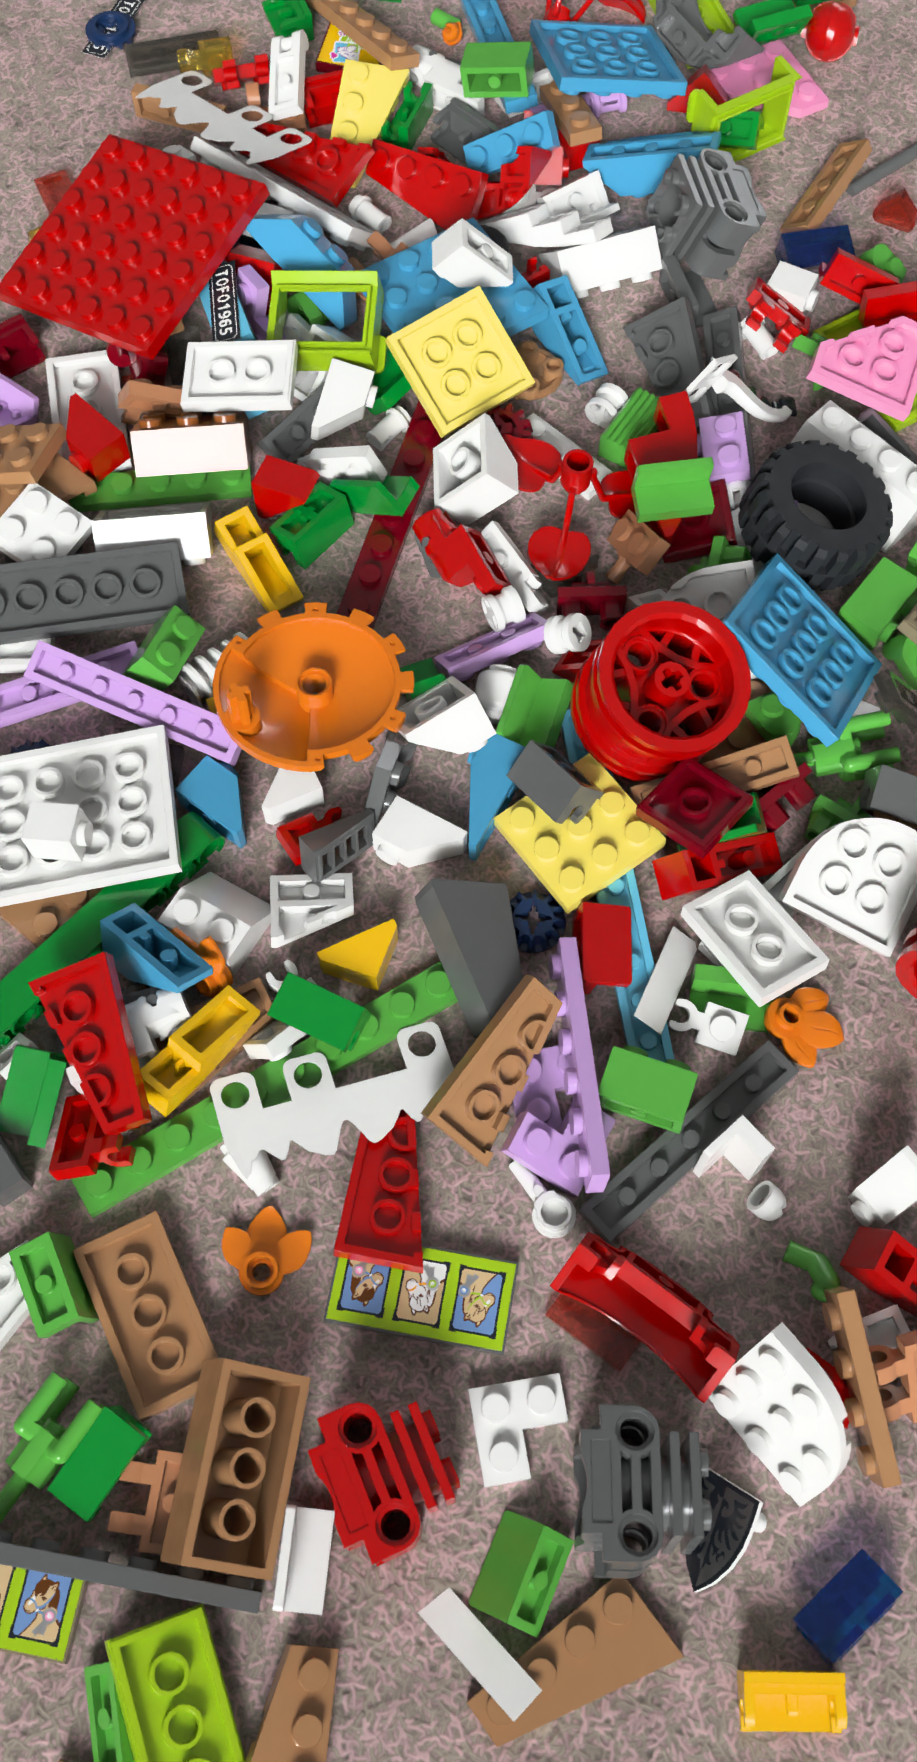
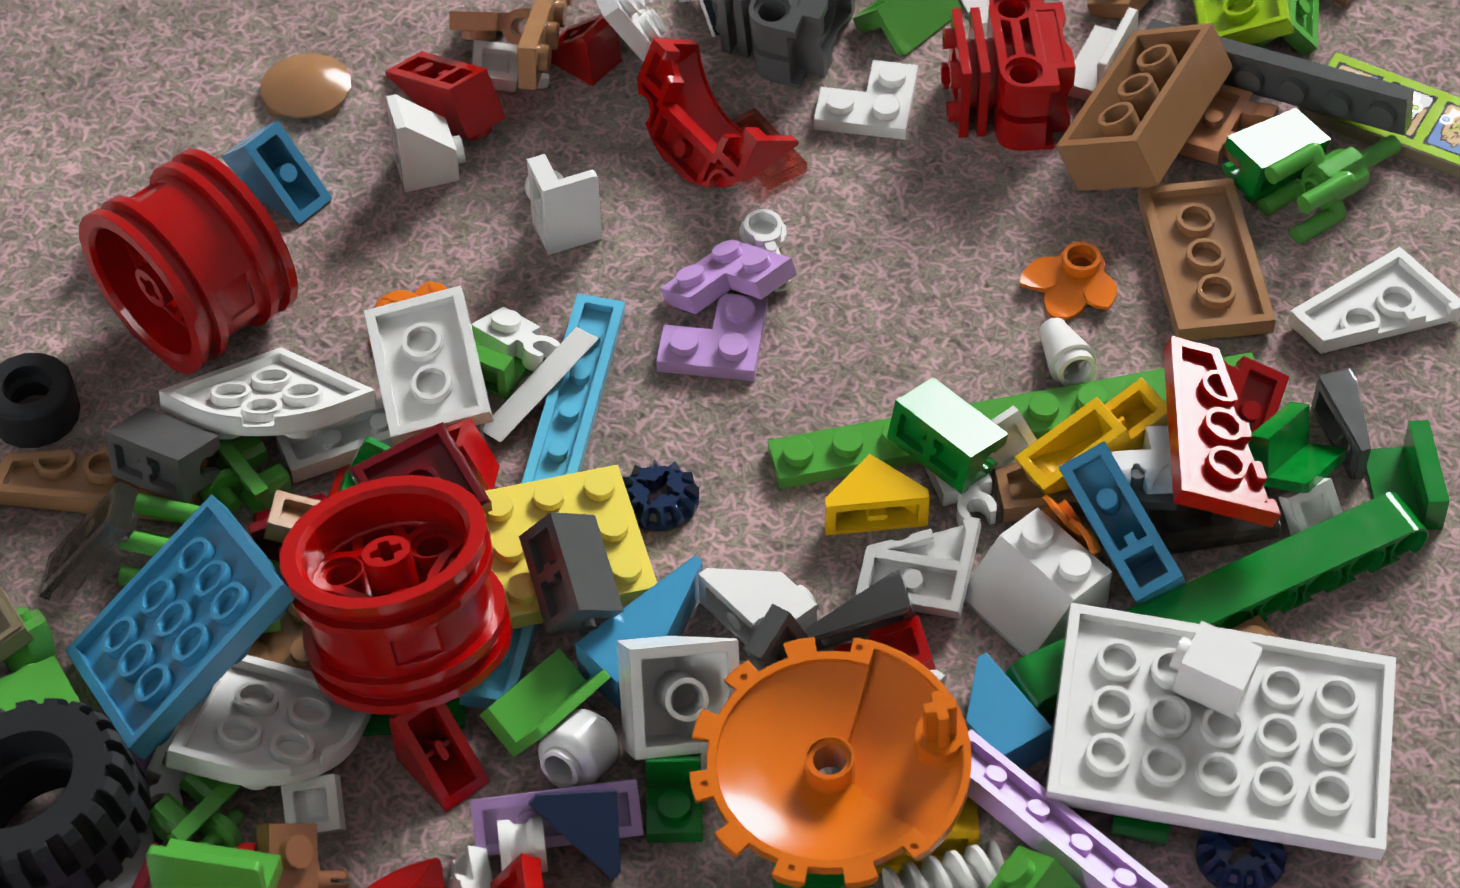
camera: 160 degrees left, 15 degrees down
(52, 1284) = (1300, 292): bright green panel -> none
(318, 1112) = (979, 355): white piece -> none
(382, 1202) = (933, 279): red wing -> none
(454, 1303) = (922, 213): tile -> none
(472, 627) = (587, 821): none -> dark blue slope
(474, 942) = (738, 460): dark grey slope -> none
(482, 1086) = (789, 325): medium nougat wing -> none
(567, 633) = (453, 781): white wheel -> none
(580, 1077) = (675, 323): lavender plate -> none
(593, 599) = (389, 841): dark red hips -> none
(603, 944) = (599, 426): red panel -> none
(647, 1088) = (620, 273): bright green brick -> none
(676, 1154) = (593, 250): dark grey plate -> none
(816, 1265) = (524, 130): bright green arm -> none

